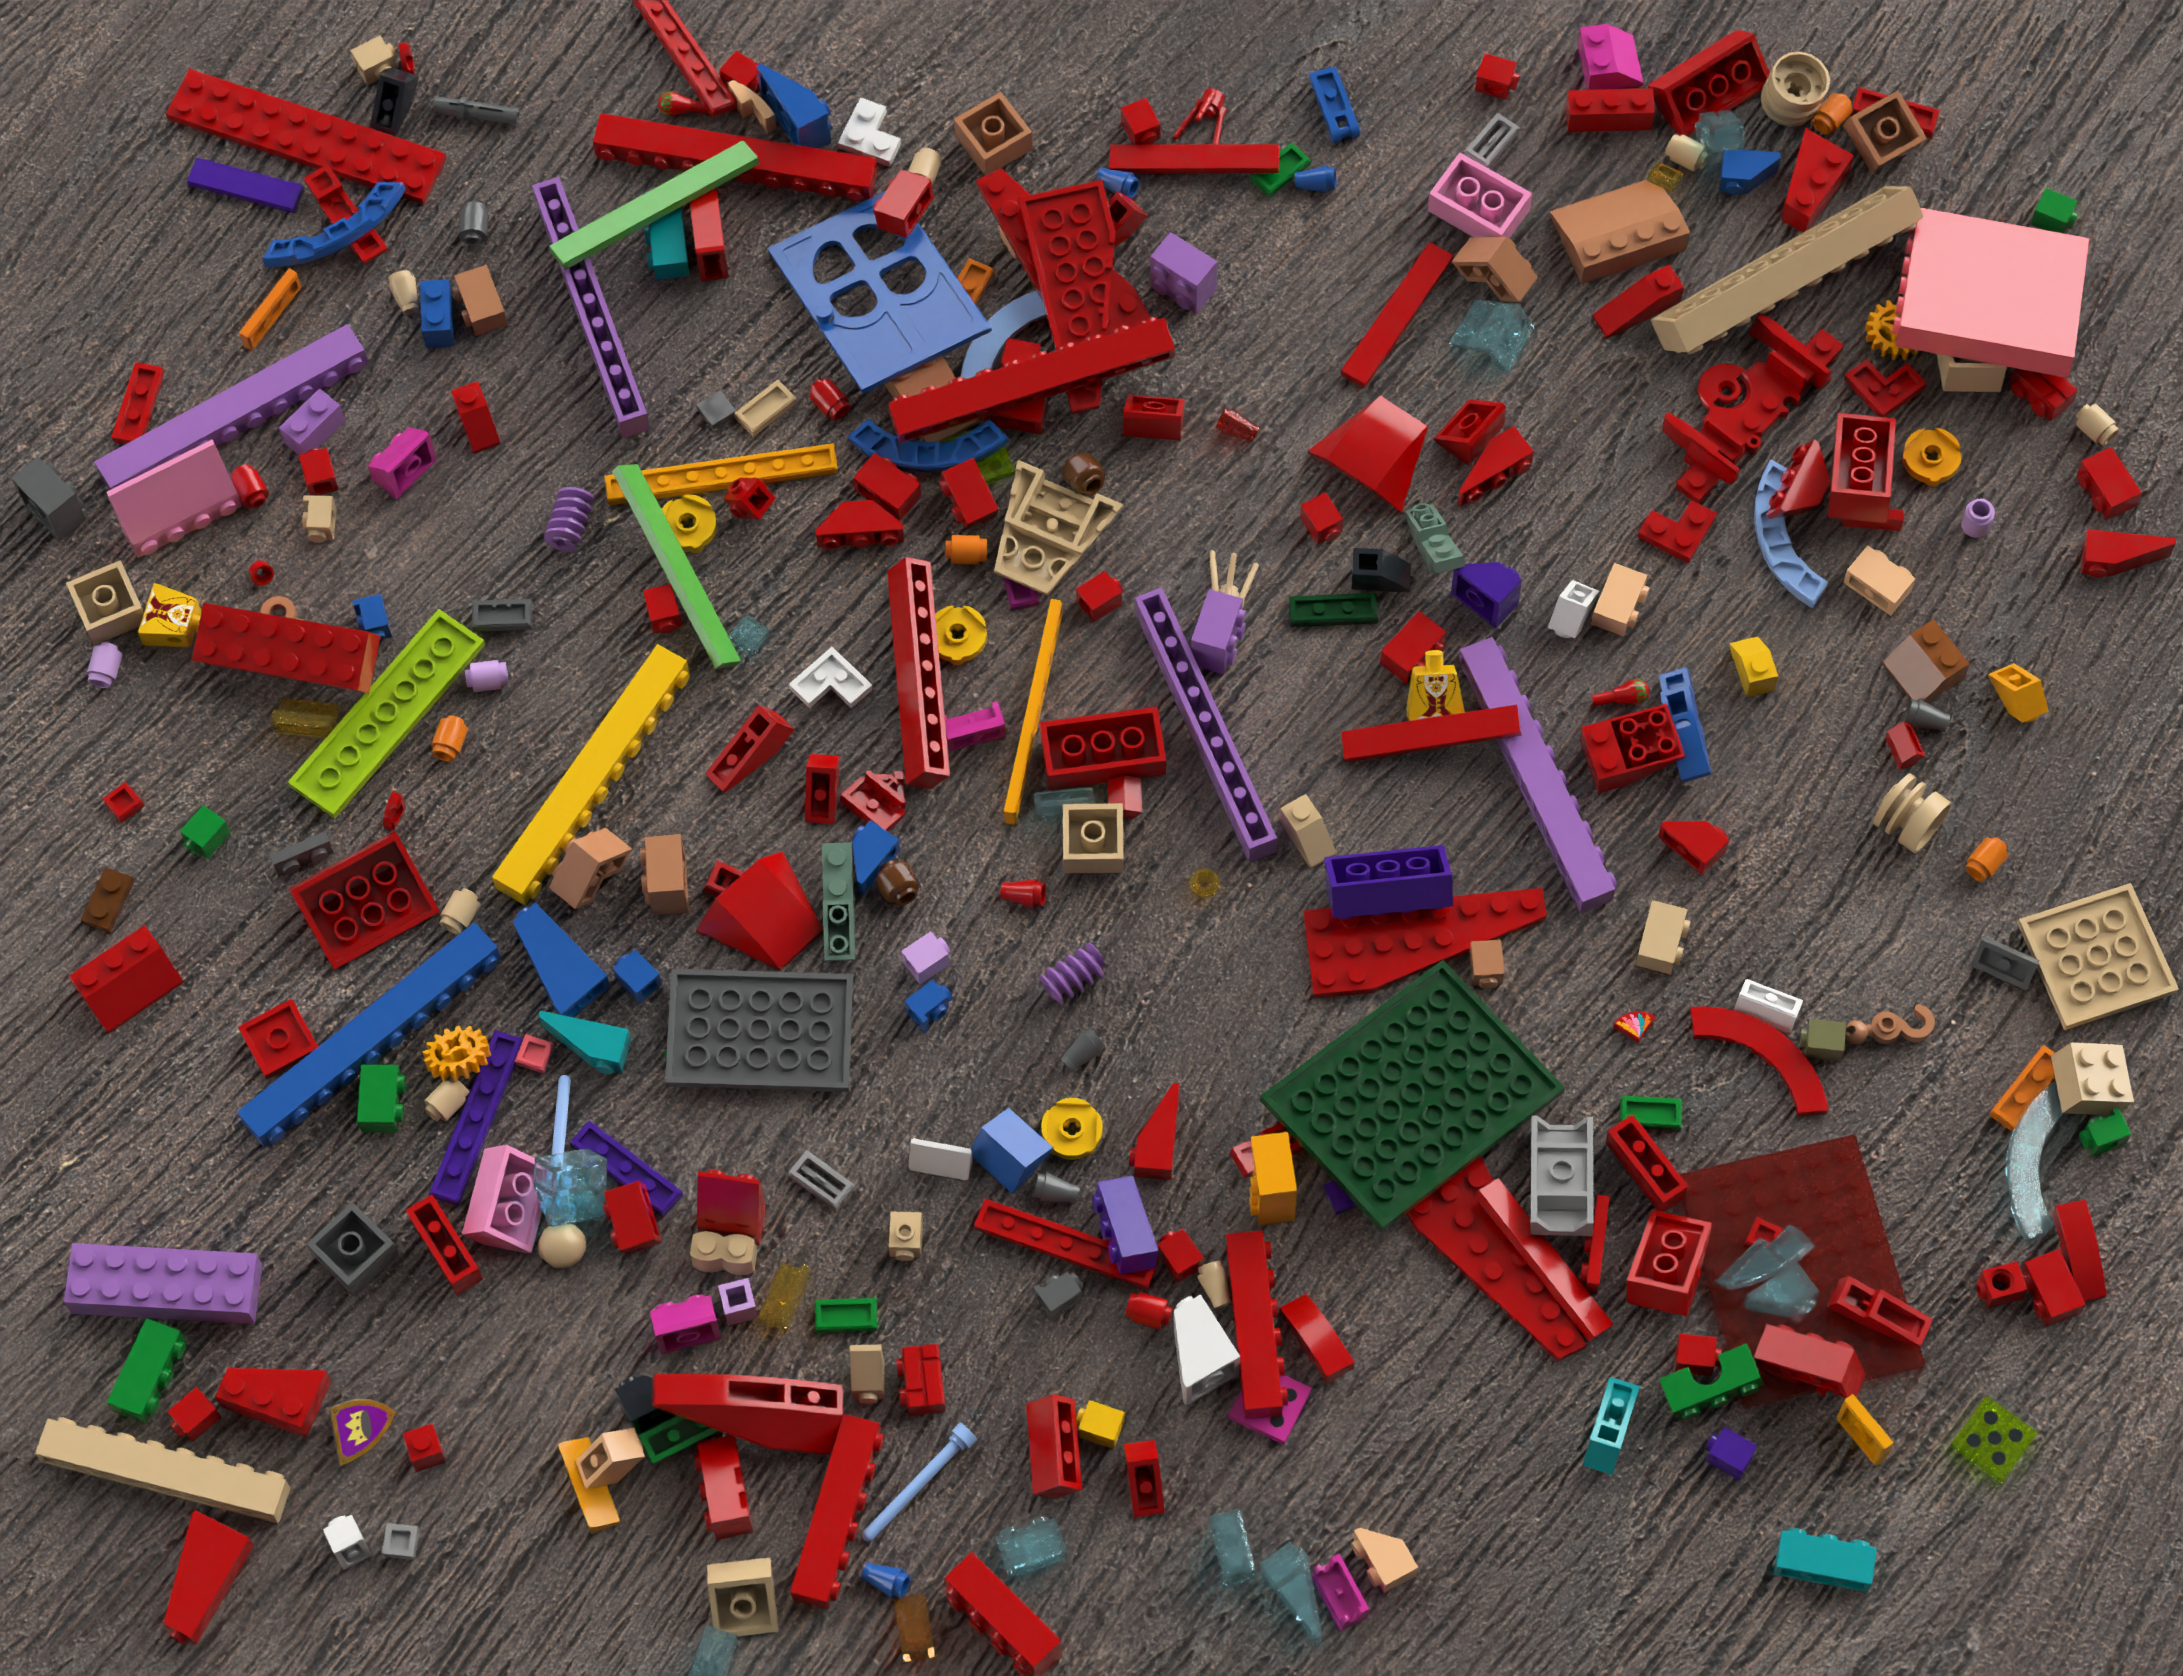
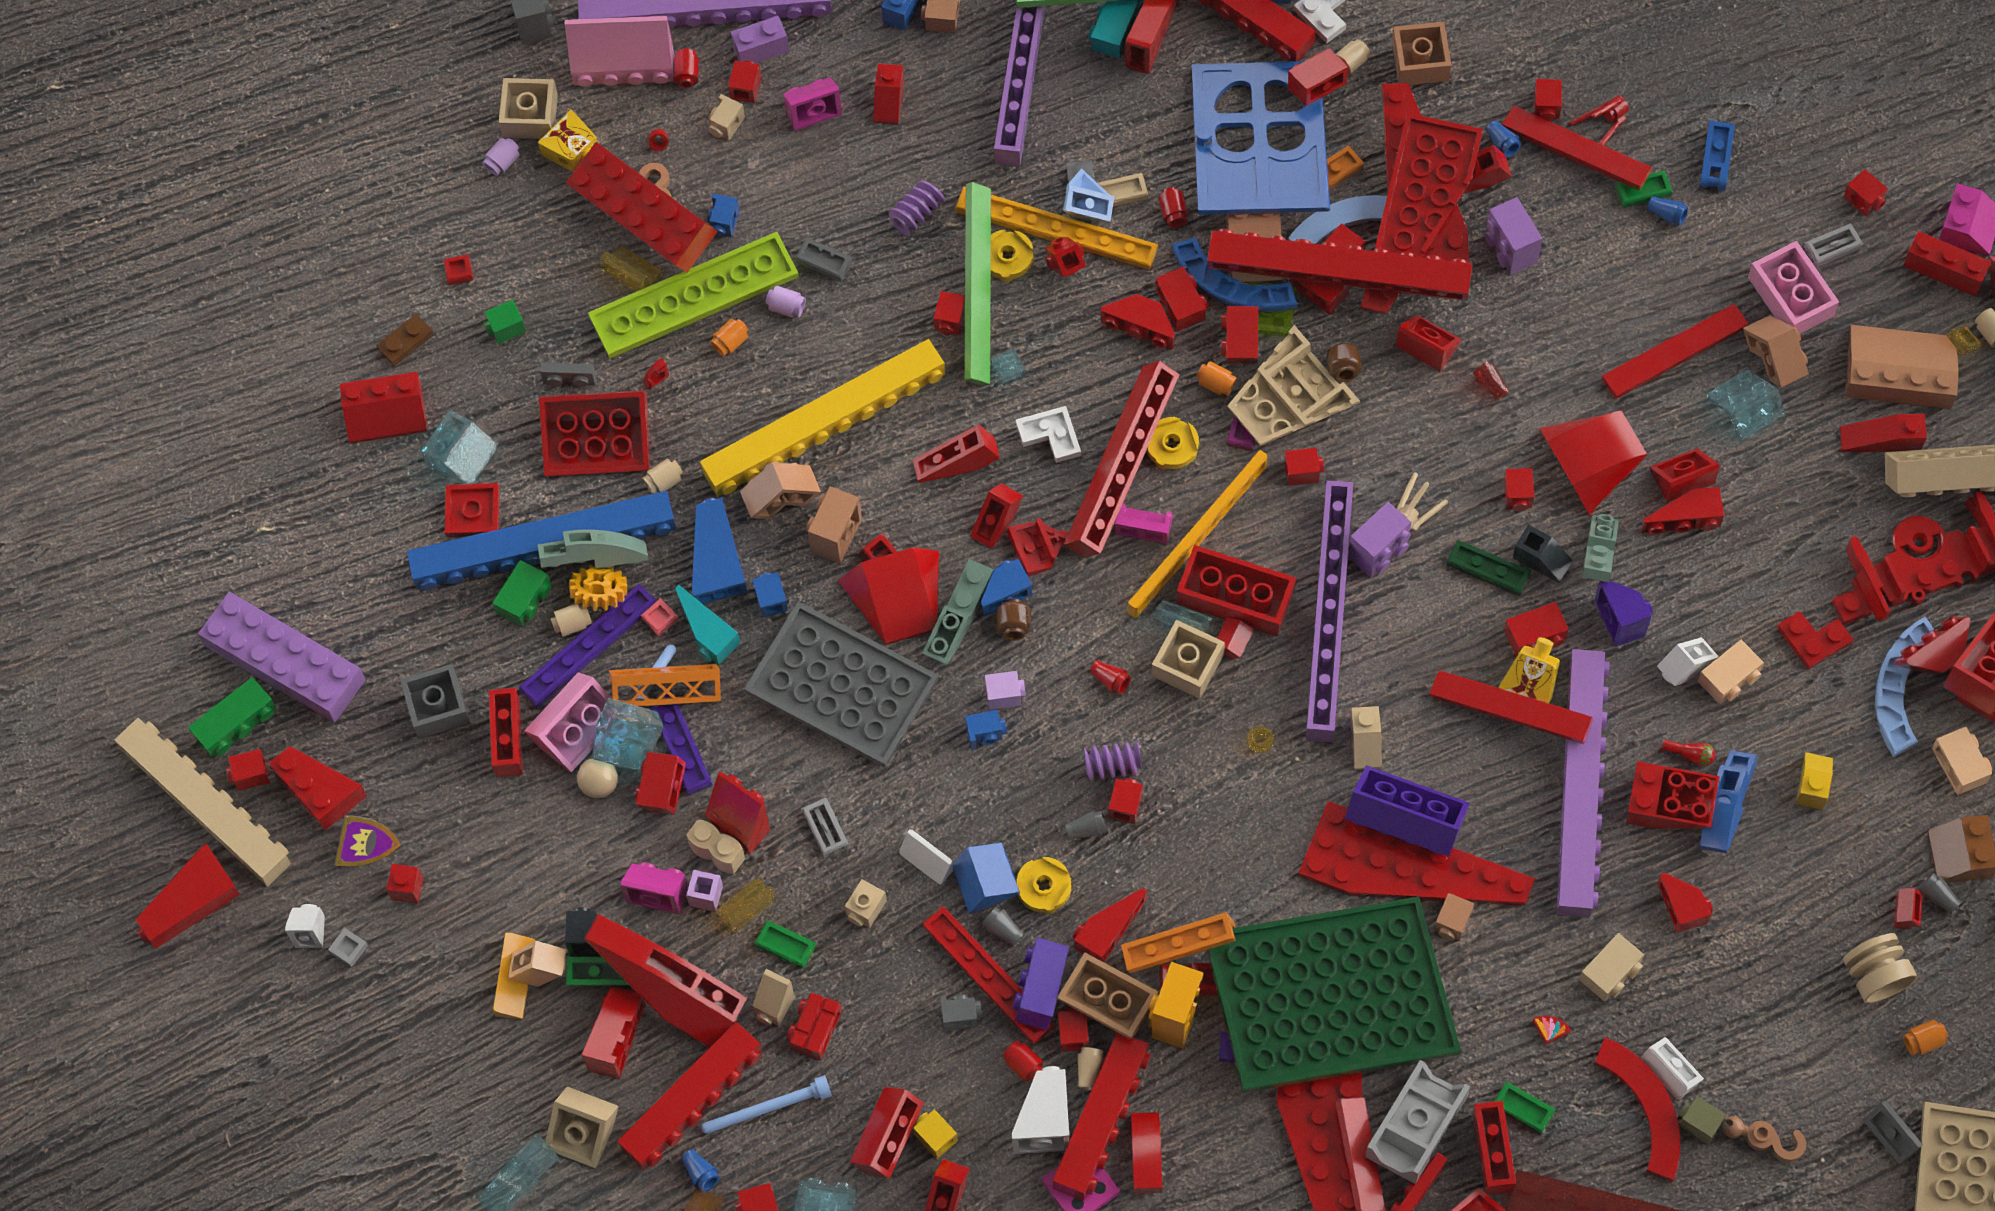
camera: 30 degrees right, 0 degrees up
(231, 983) = (458, 448): none -> clear light blue slope
(439, 1010) = (602, 546): none -> sand green slope
(579, 1106) = (669, 675): none -> orange fence
(741, 430) = (1087, 199): none -> light blue slope
(1107, 1006) = (1125, 800): none -> red brick
(1199, 1203) = (1108, 996): none -> medium nougat slope
(1239, 1118) = (1178, 942): none -> orange fence

